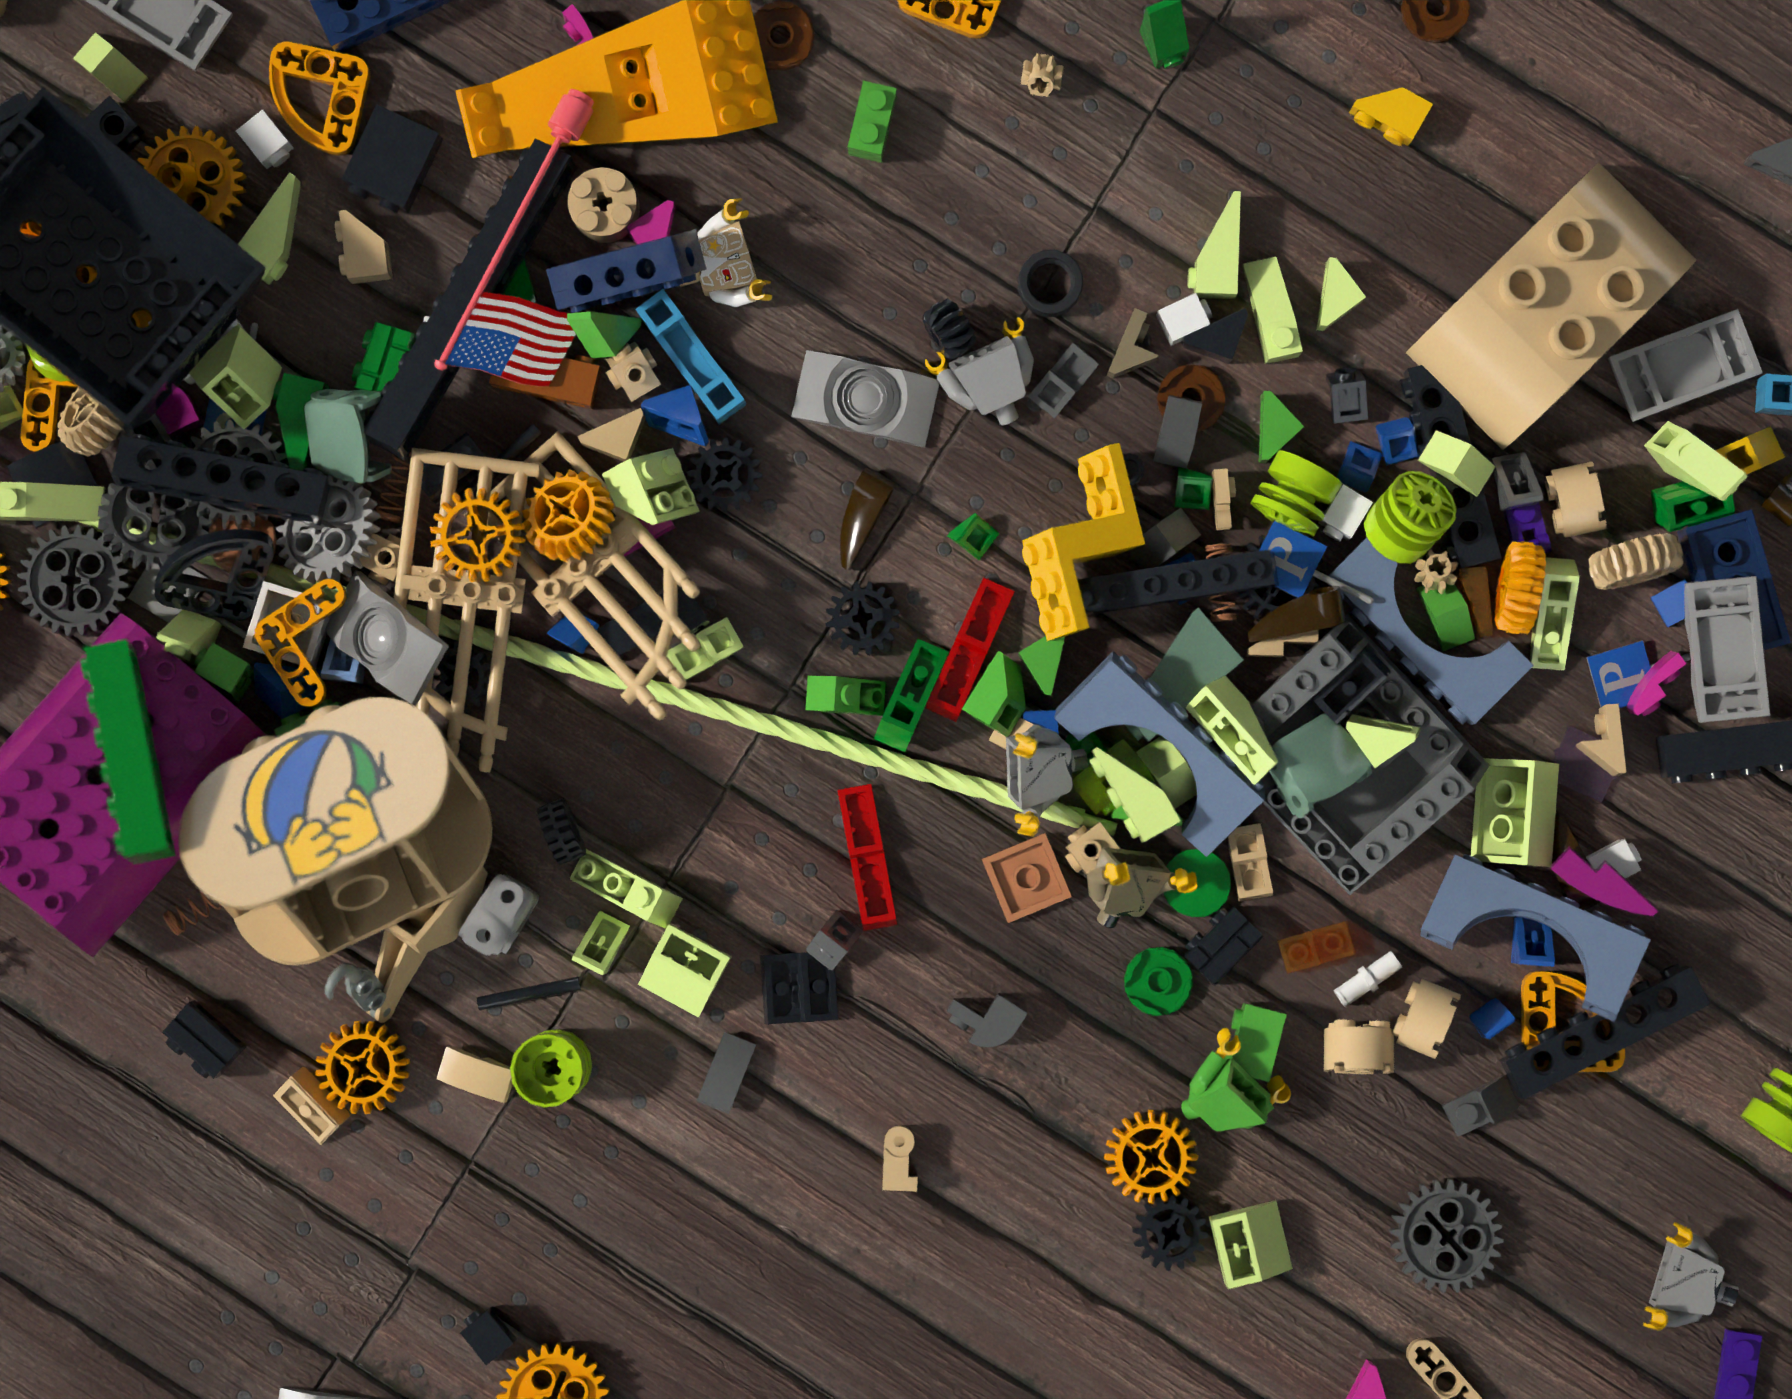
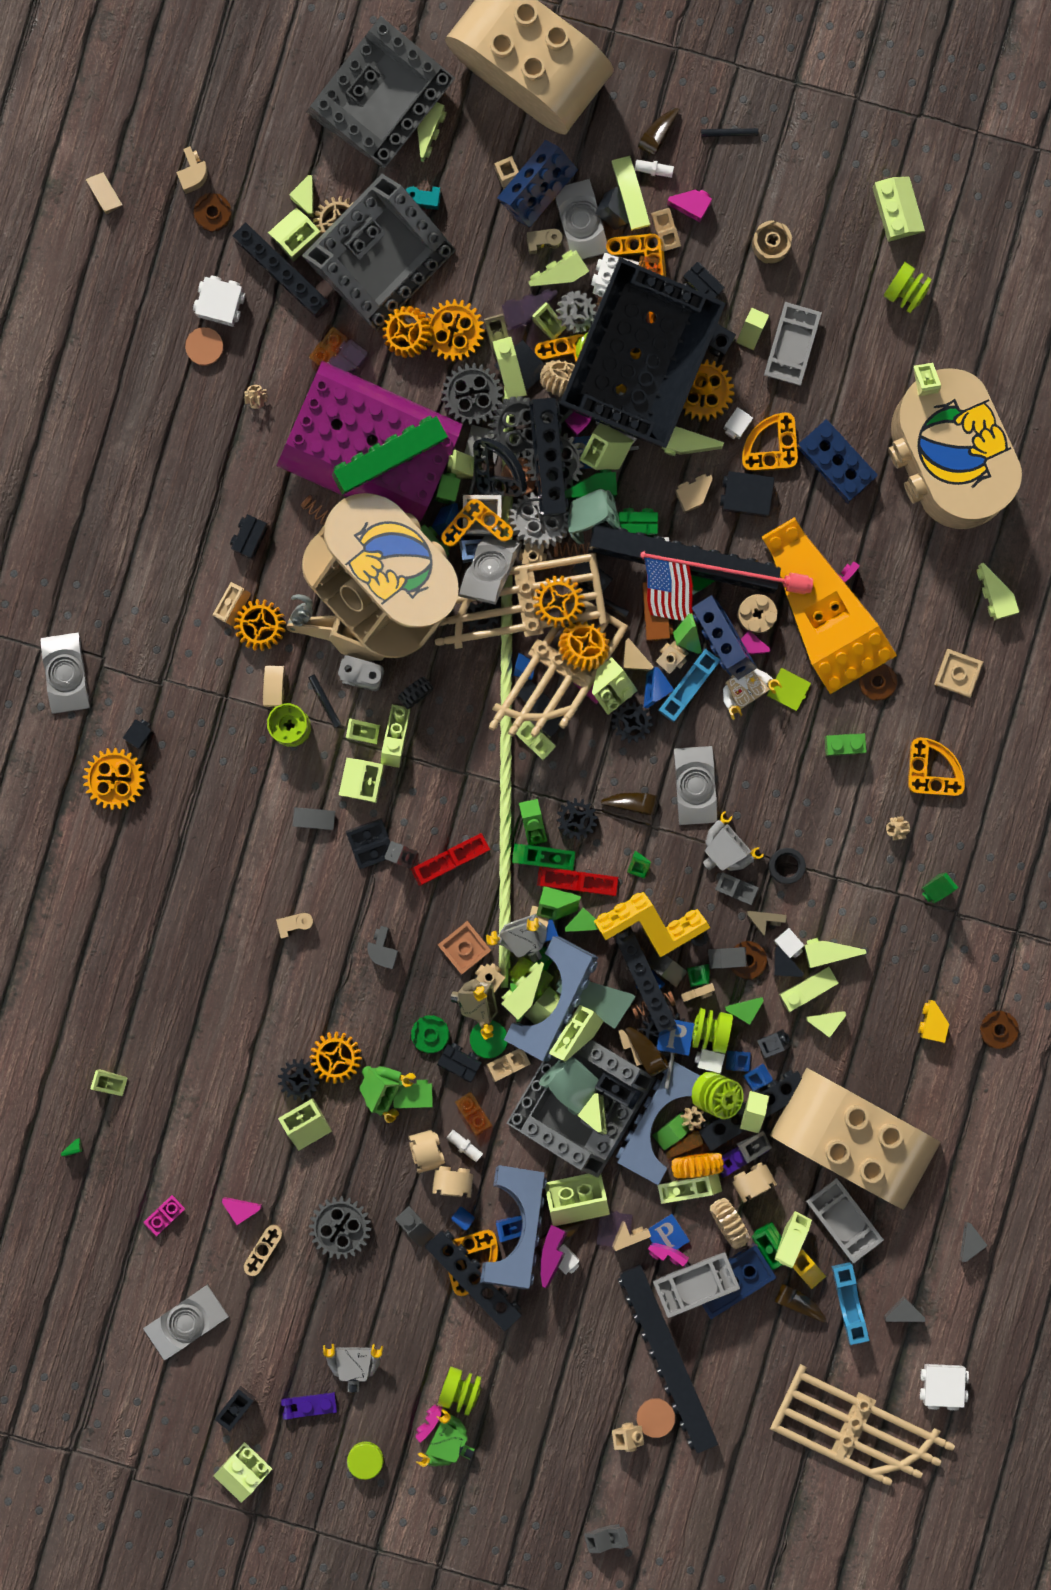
camera: 70 degrees right, 0 degrees up
(754, 184) = (792, 689): none -> lime piece
(949, 329) = (745, 819): black gear -> none
(1671, 603) = (713, 1249): blue slope -> none

